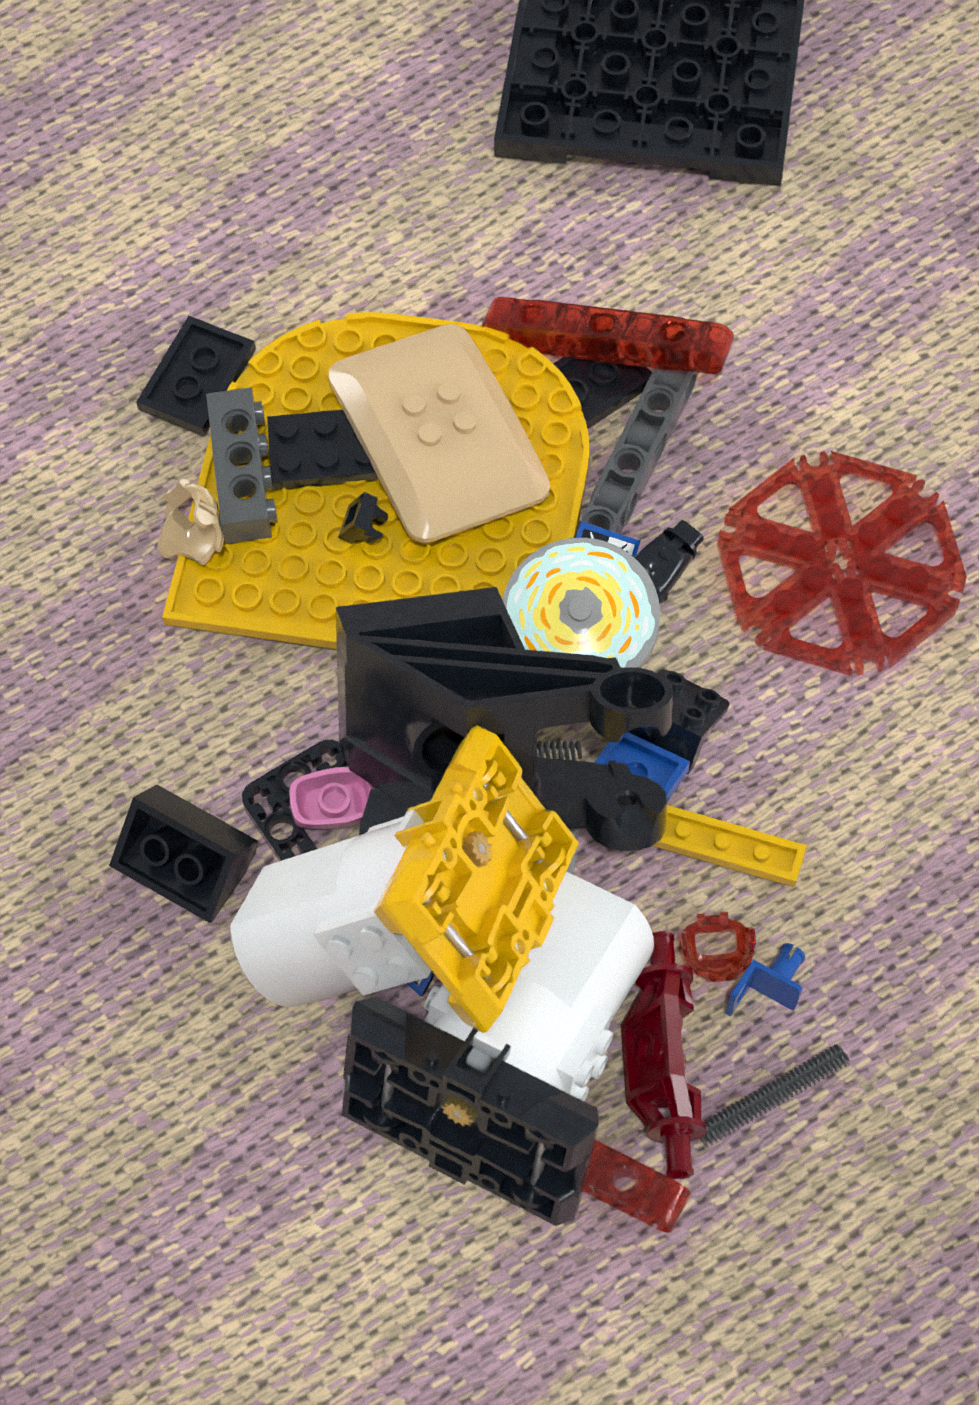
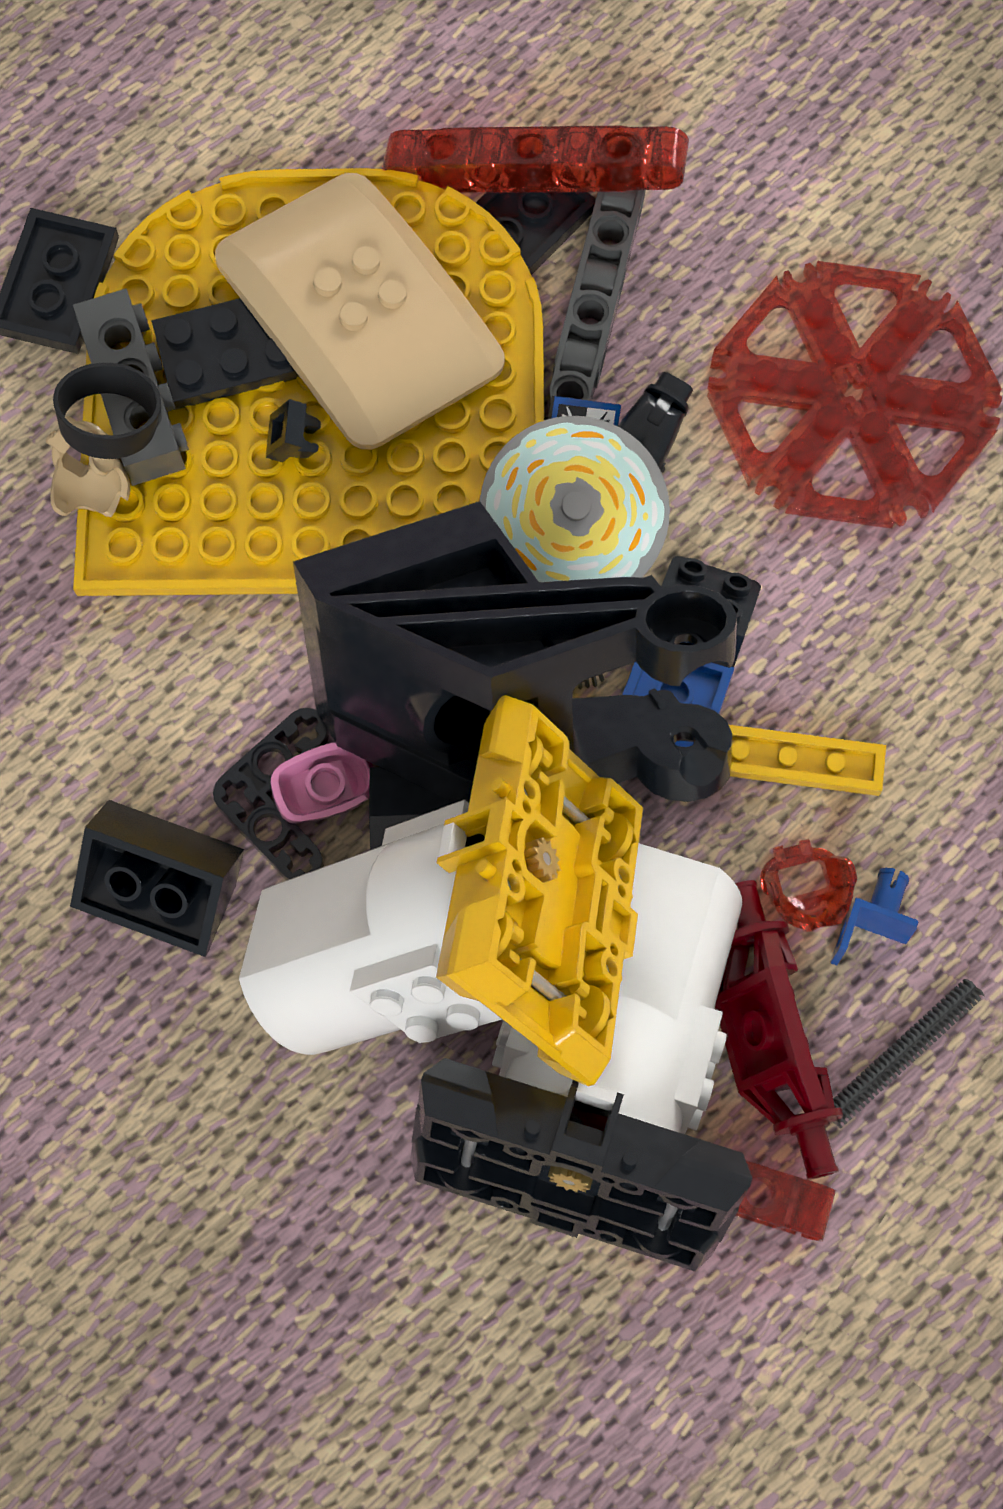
camera: 15 degrees left, 10 degrees up
(221, 454) = (110, 379): none -> black tyre

